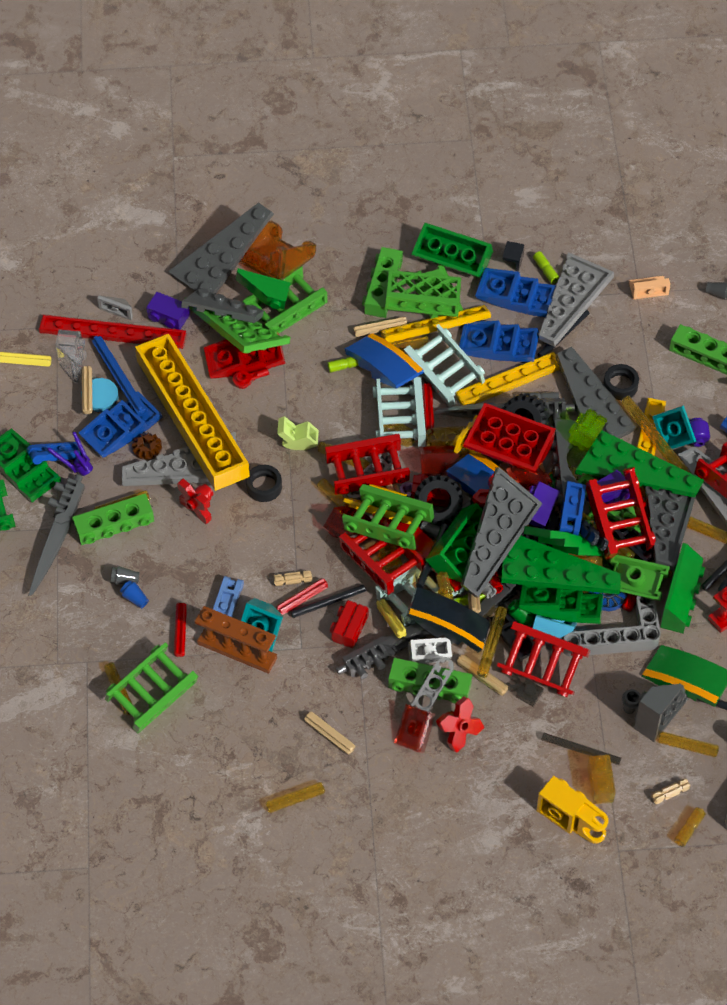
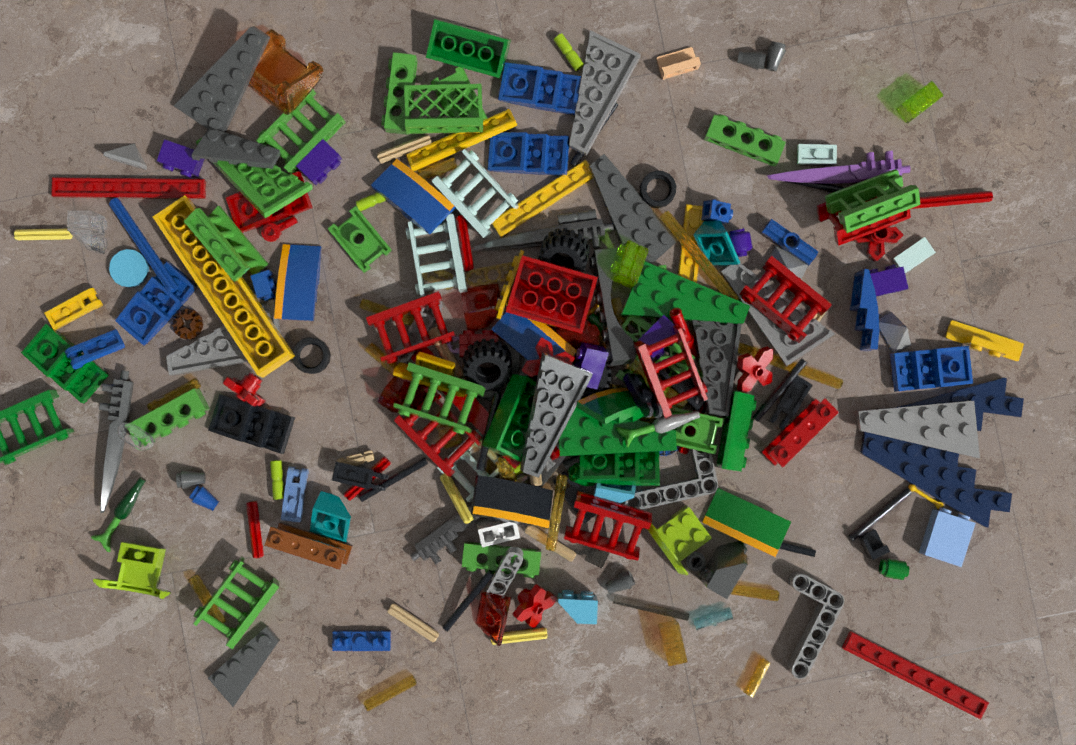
camera: 10 degrees left, 30 degrees up
(40, 420) = (73, 309): none -> yellow plate
(49, 598) = (121, 512): none -> dark green piece
(58, 646) = (138, 571): none -> lime piece
(81, 463) = (123, 357): dark purple plant -> none
(83, 522) = (132, 440): none -> clear beam
(86, 390) = (114, 269): tan axle -> none
(140, 757) = (242, 667): none -> dark grey wing
(194, 535) = (251, 424): none -> black slope
(201, 374) = (225, 242): none -> bright green fence
(211, 584) = (277, 482): none -> lime piece
(229, 416) = (264, 285): none -> blue brick
(260, 421) = (297, 282): none -> blue slope
(267, 289) = (283, 128): green slope -> none
(272, 745) = (361, 640): none -> blue plate
(295, 587) = (357, 476): none -> black hinge
(297, 436) = (336, 296): yellowish green brick -> none
(299, 326) = (319, 162): none -> dark purple brick
(330, 402) = (369, 249): none -> bright green piece
(349, 624) = (416, 506): red brick -> none
(390, 714) = (468, 600): none -> black bar
(439, 758) = (524, 635): none -> light yellow axle
(505, 728) = (580, 607): none -> medium azure slope
(514, 252) = (533, 41): black panel -> none
(551, 718) = (621, 582): none -> dark grey cone
(571, 810) = (647, 683): yellow brick -> none
(572, 507) = (623, 372): blue plate -> none
(605, 563) = (659, 425): none -> light grey piece
(617, 676) = (680, 537): none -> lime piece
(646, 764) = (713, 618): none -> clear light blue pin
(670, 791) = (737, 642): tan axle -> none
(676, 399) = (716, 210): none -> blue brick
(703, 535) = (754, 369): none -> plant

